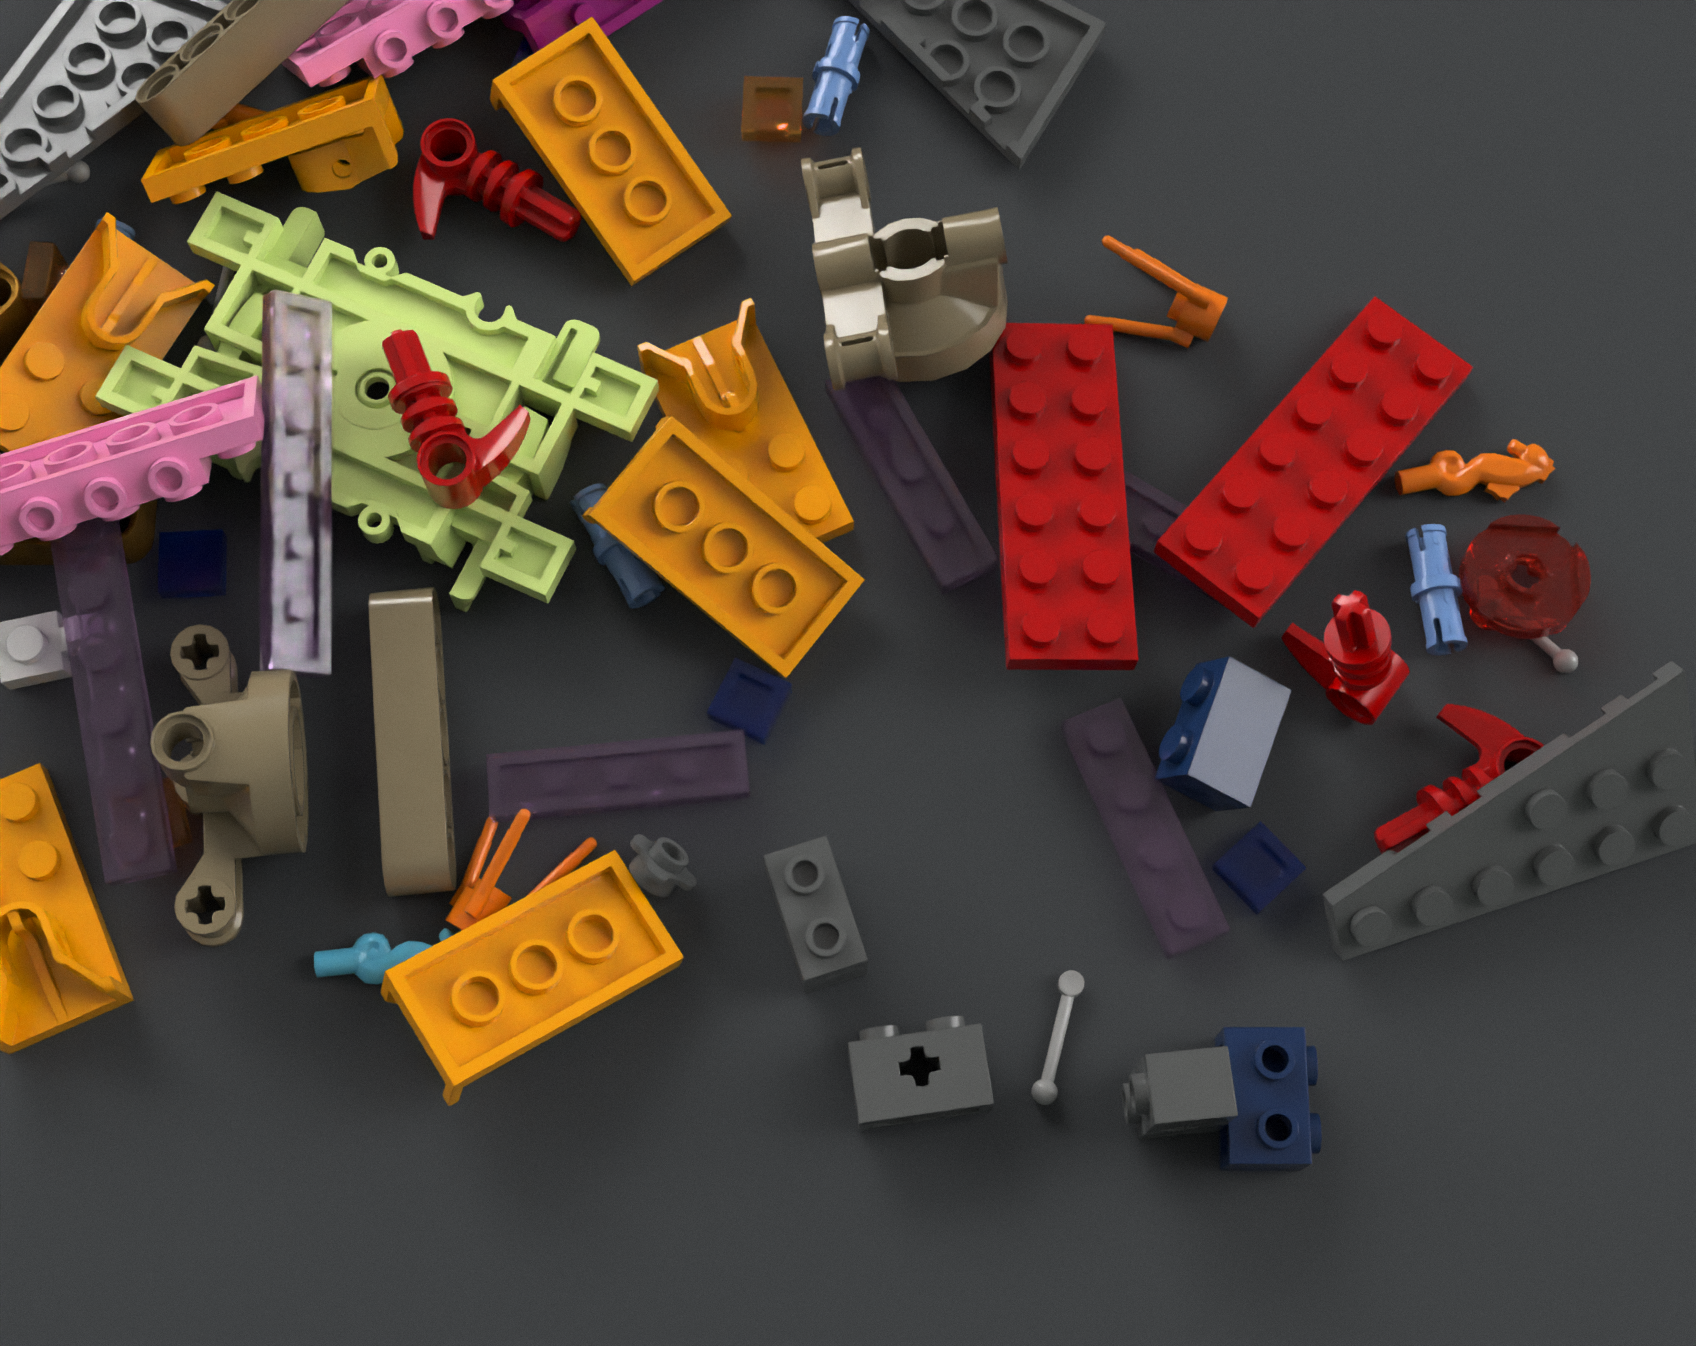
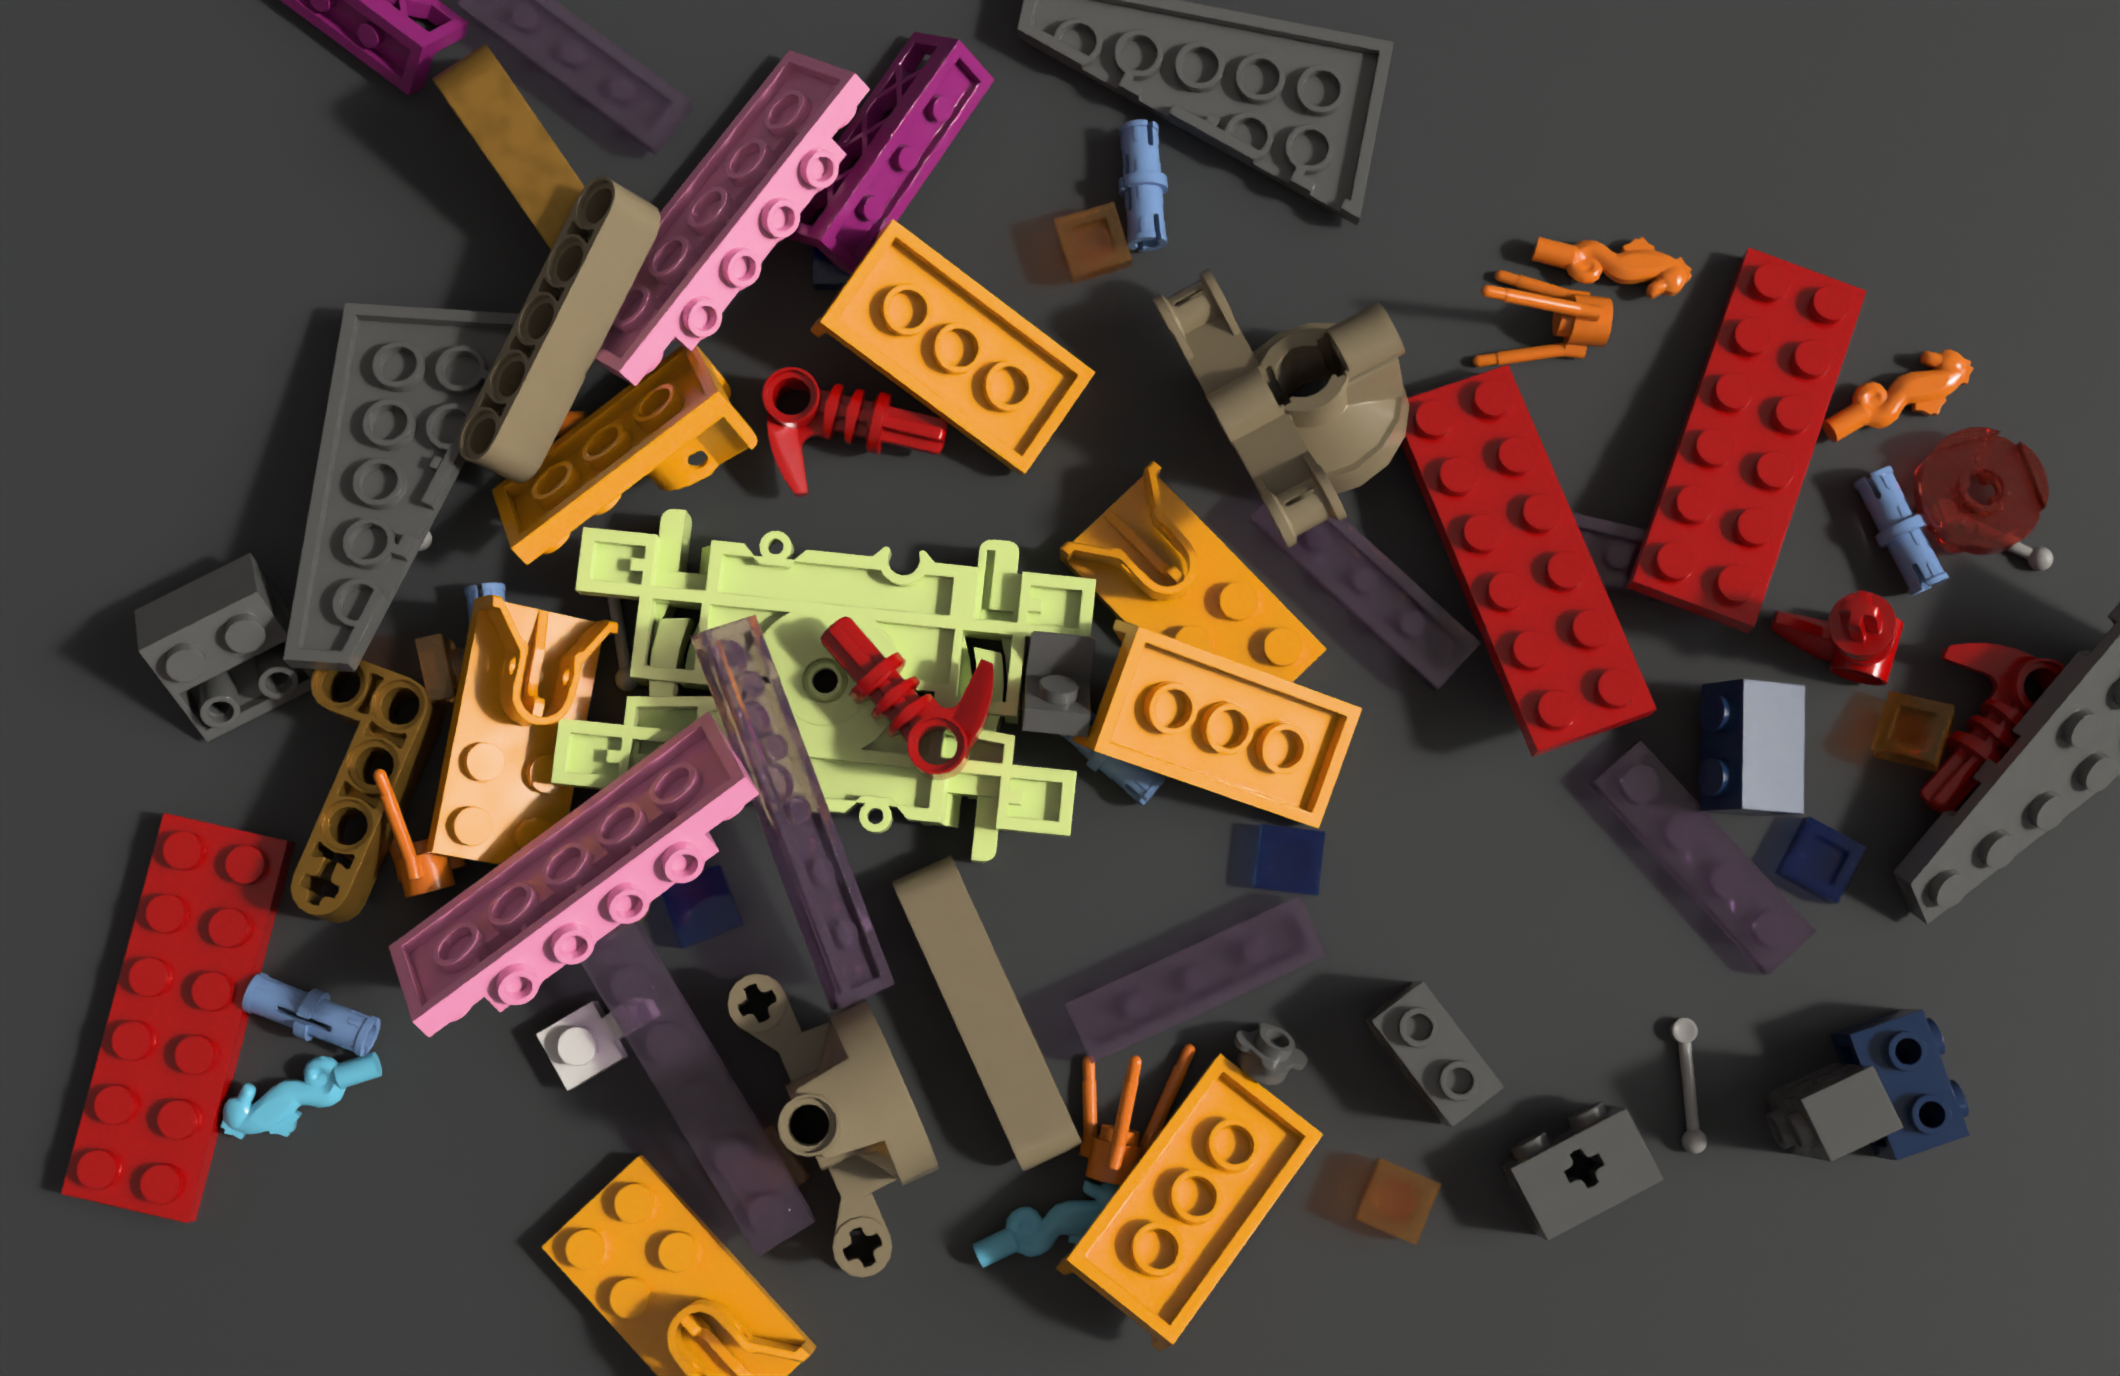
camera: 20 degrees left, 10 degrees up
(590, 455) = (1057, 683): none -> dark grey slope
(732, 1045) = (1396, 1200): none -> clear orange plate
(1264, 281) = (1634, 264): none -> orange animal
(1387, 773) = (1913, 731): none -> clear orange plate

